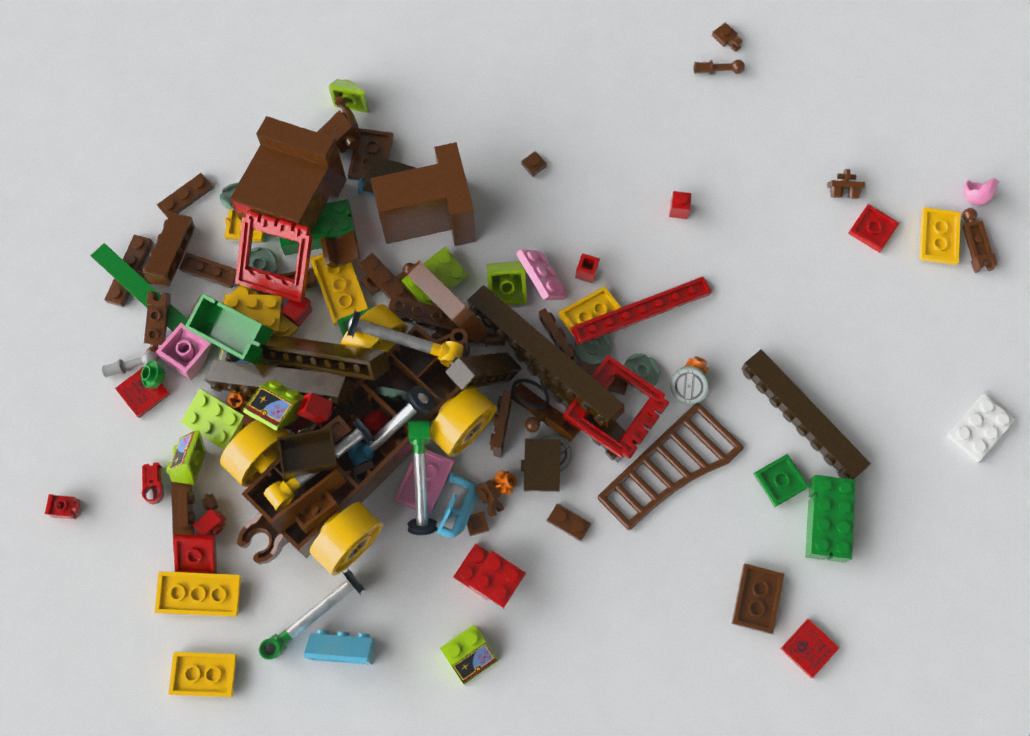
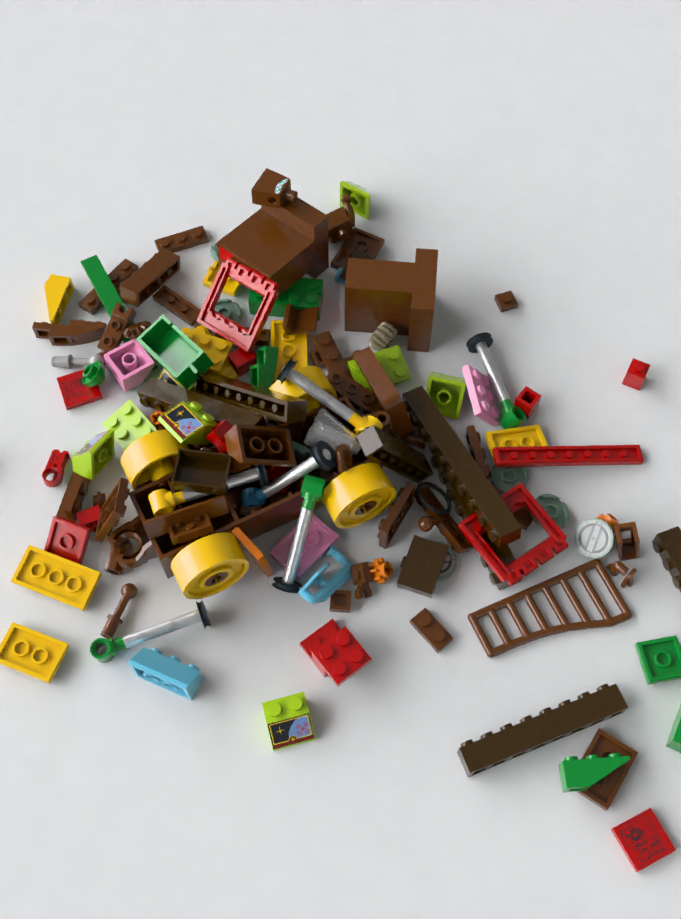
camera: 20 degrees right, 10 degrees down
(79, 295) = (58, 293): none -> yellow slope
(116, 333) = (75, 333): none -> reddish brown slope
(180, 313) = (136, 329): none -> reddish brown gear
(230, 514) = (112, 510): none -> reddish brown plate
(247, 554) = (112, 565): none -> reddish brown piece
(268, 126) = (272, 190): none -> reddish brown torso
(273, 583) = (128, 592): none -> reddish brown pin
(323, 316) = (264, 370): none -> green slope
(356, 409) = (260, 445): none -> reddish brown slope
(379, 507) = (253, 552): none -> orange tile
(419, 371) = (331, 431): none -> clear cone
(427, 242) = (382, 336): none -> dark tan gear
(439, 394) = (344, 458): none -> reddish brown piece
(576, 285) = (511, 414): none -> piece
(696, 582) = (542, 729): none -> dark brown brick
(720, 406) = (618, 567): none -> reddish brown piece
(721, 383) = (630, 547): none -> reddish brown window
(745, 611) = (584, 773): none -> green slope

